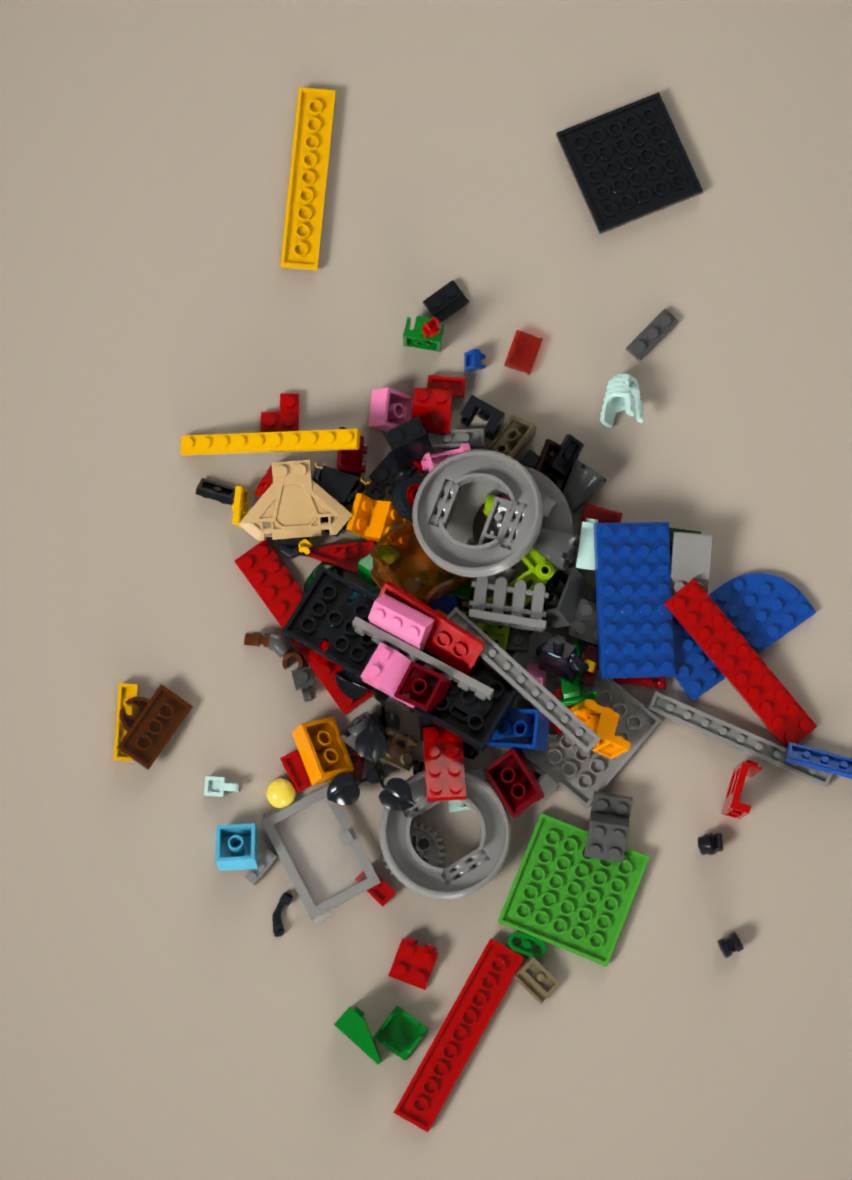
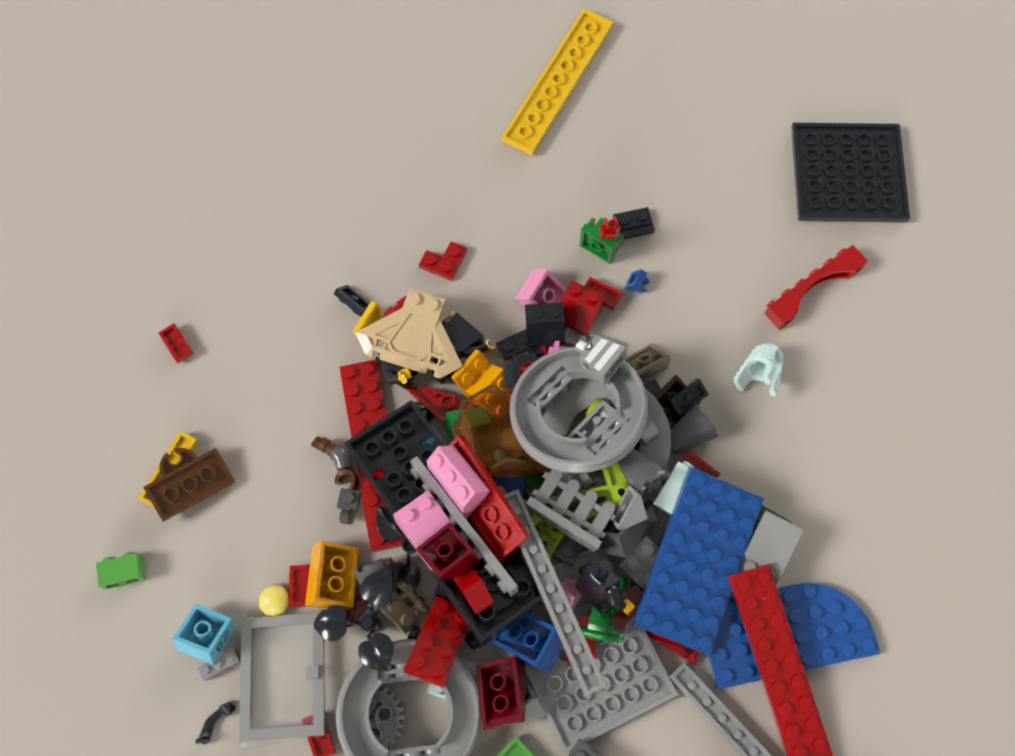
camera: 25 degrees right, 10 degrees down
(68, 603) = (176, 343): none -> red plate
(132, 827) = (120, 571): none -> bright green brick
(217, 787) = (218, 567): light aqua plate -> none
(270, 442) = (421, 273): yellow plate -> none
(352, 460) = (487, 311): dark red slope -> none
(380, 490) = (496, 355): black bush -> none
(457, 708) = (474, 591): none -> red slope
(479, 460) = (601, 358): none -> light grey torso
(484, 411) = (622, 320): black panel -> none
(523, 352) = (685, 292): clear red plate -> none
(558, 582) = (629, 510): none -> light grey slope
(602, 722) = (616, 672): light orange bracket -> none
(652, 335) = (813, 324): dark grey plate -> none
(660, 263) = (843, 266): none -> red arch

